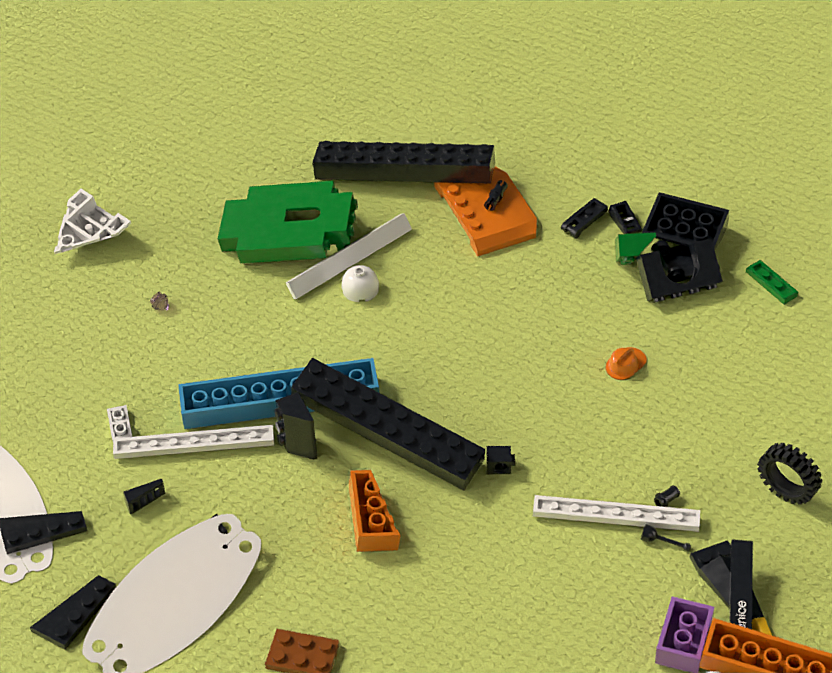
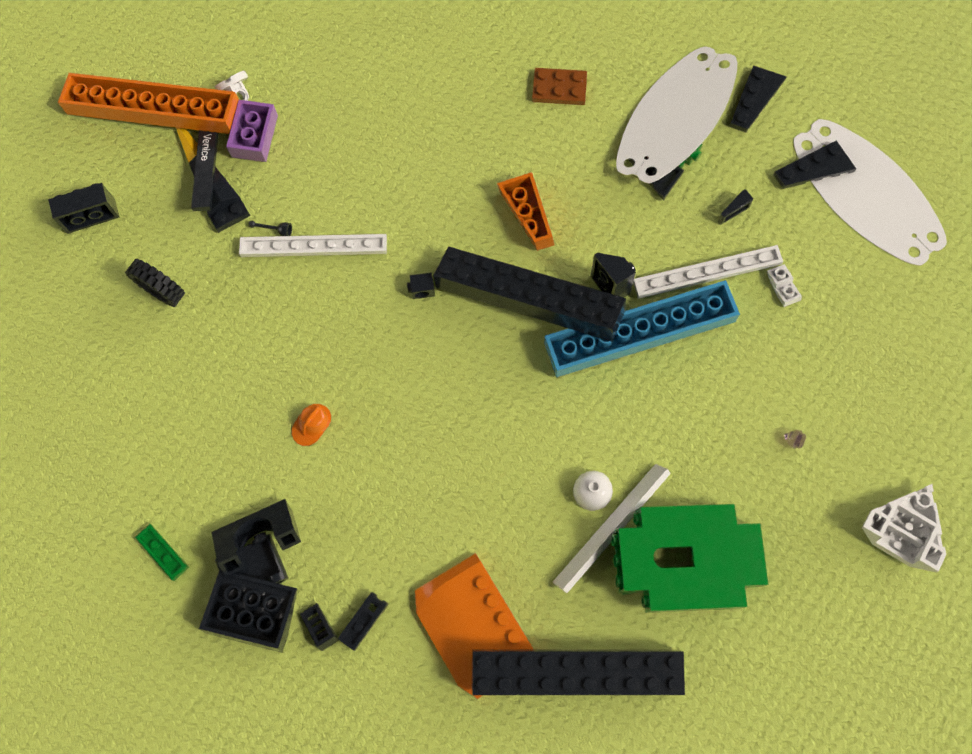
camera: 175 degrees right, 25 degrees up
(495, 195) = (463, 629): black pin -> none
(631, 246) = (304, 564): green slope -> none
(662, 499) = (269, 268): black pin -> none

